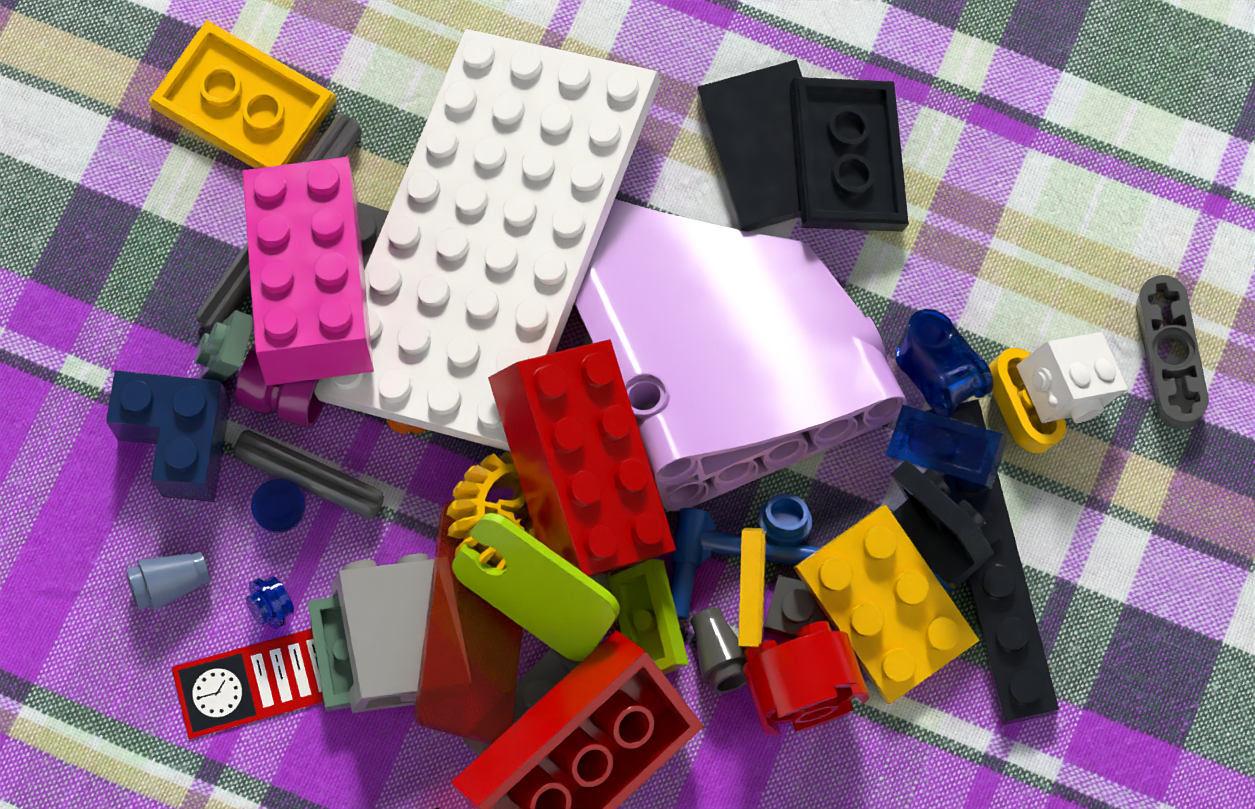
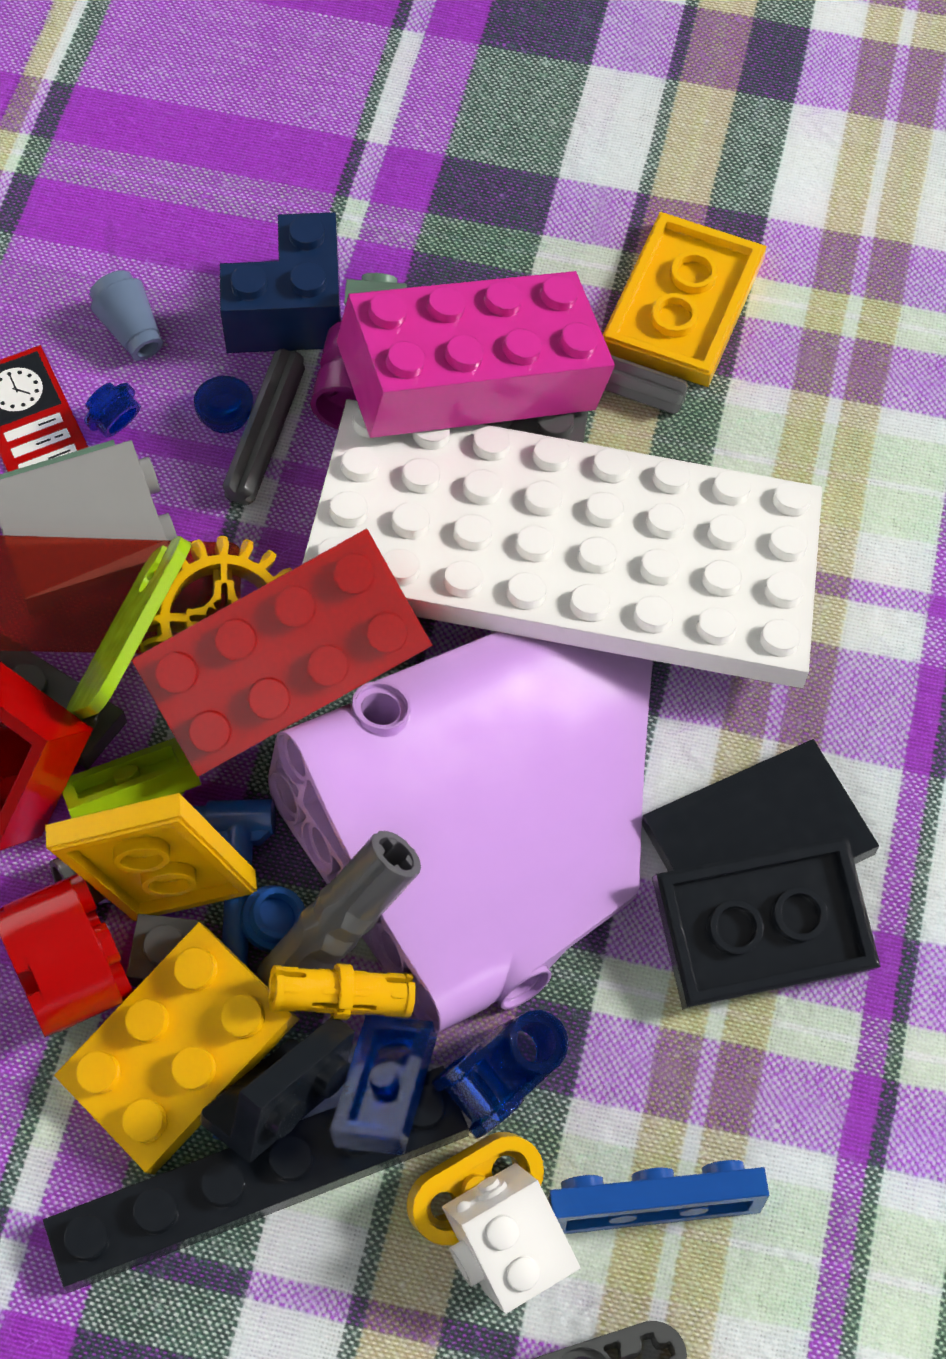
camera: 75 degrees right, 10 degrees down
(816, 455) = (346, 906): none -> dark grey axle
(874, 464) = (341, 991): none -> yellow pin
(1051, 270) = (659, 1197): none -> blue plate

